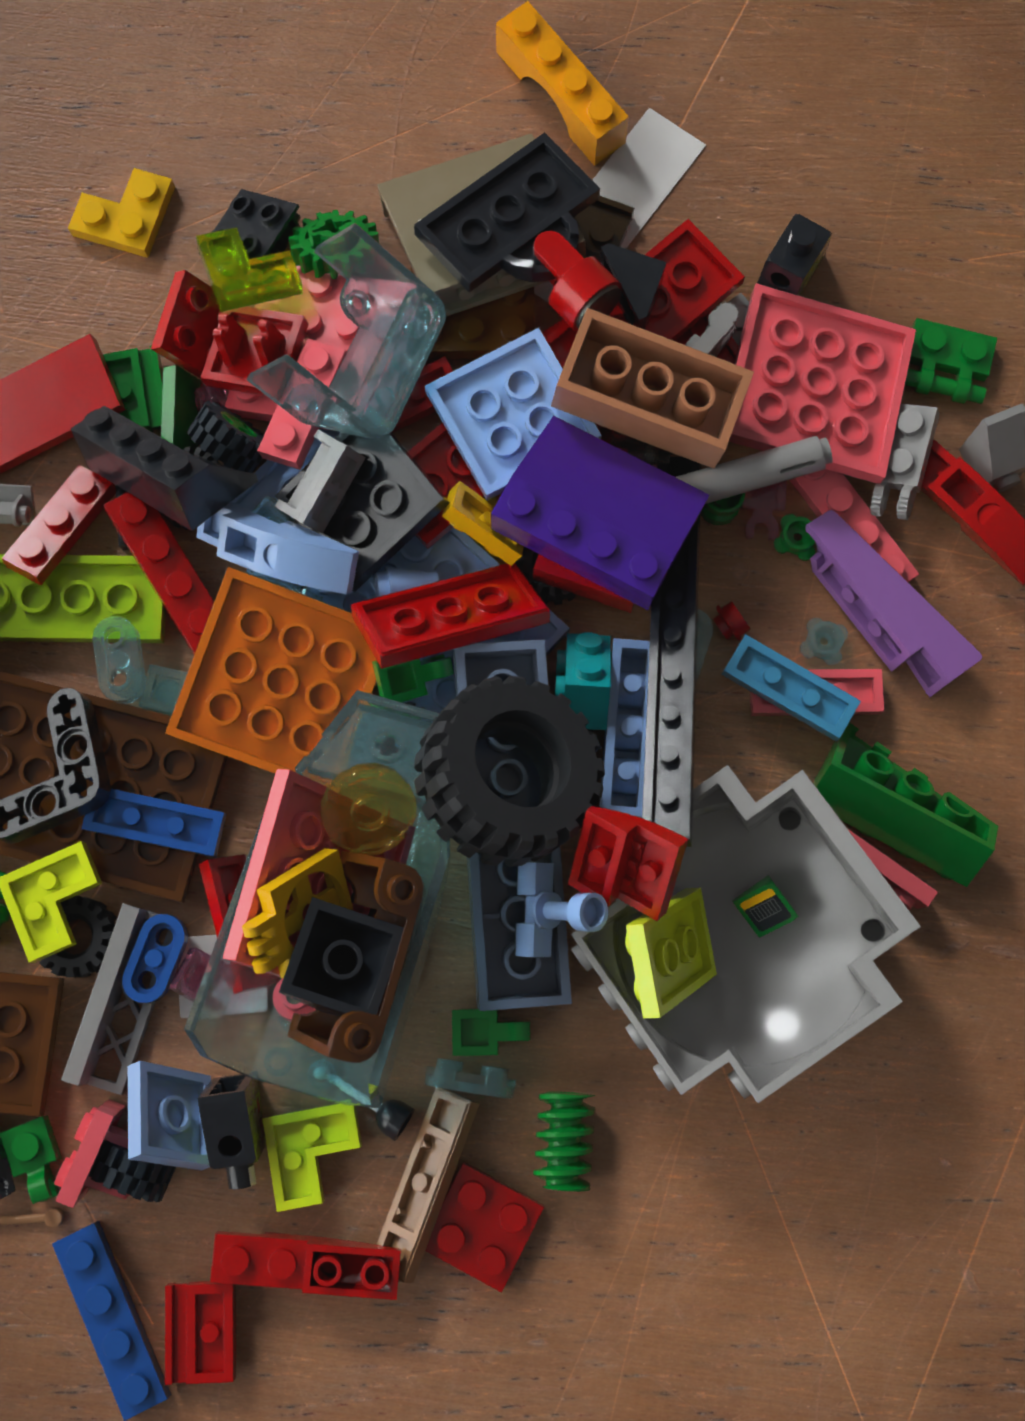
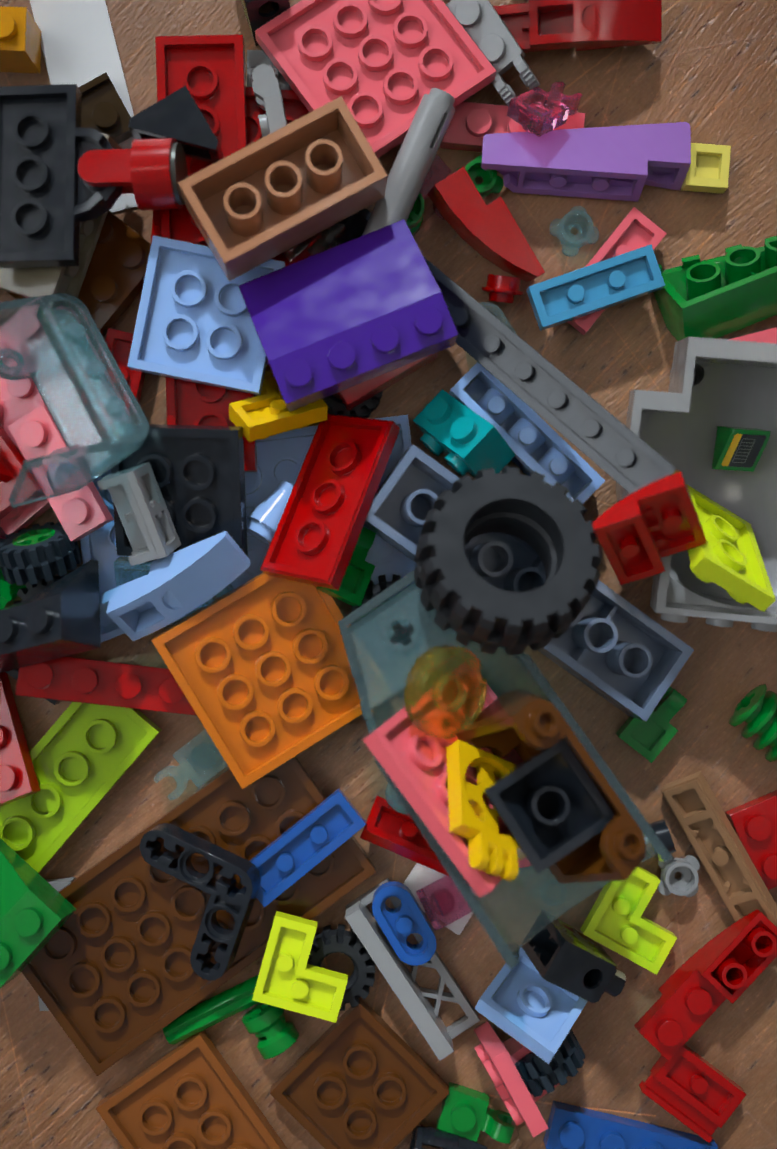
camera: 50 degrees left, 10 degrees up
(118, 658) = (151, 773): clear light blue plate -> none
(389, 1166) = (684, 886): none -> light grey plate
(490, 1082) = (666, 774): clear light blue plate -> none
(546, 910) = (621, 615): light blue bar -> none
(763, 566) = (485, 227): none -> red slope
(887, 536) = (542, 110): none -> clear pink plate
(962, 701) = (708, 168): none -> light yellow plate

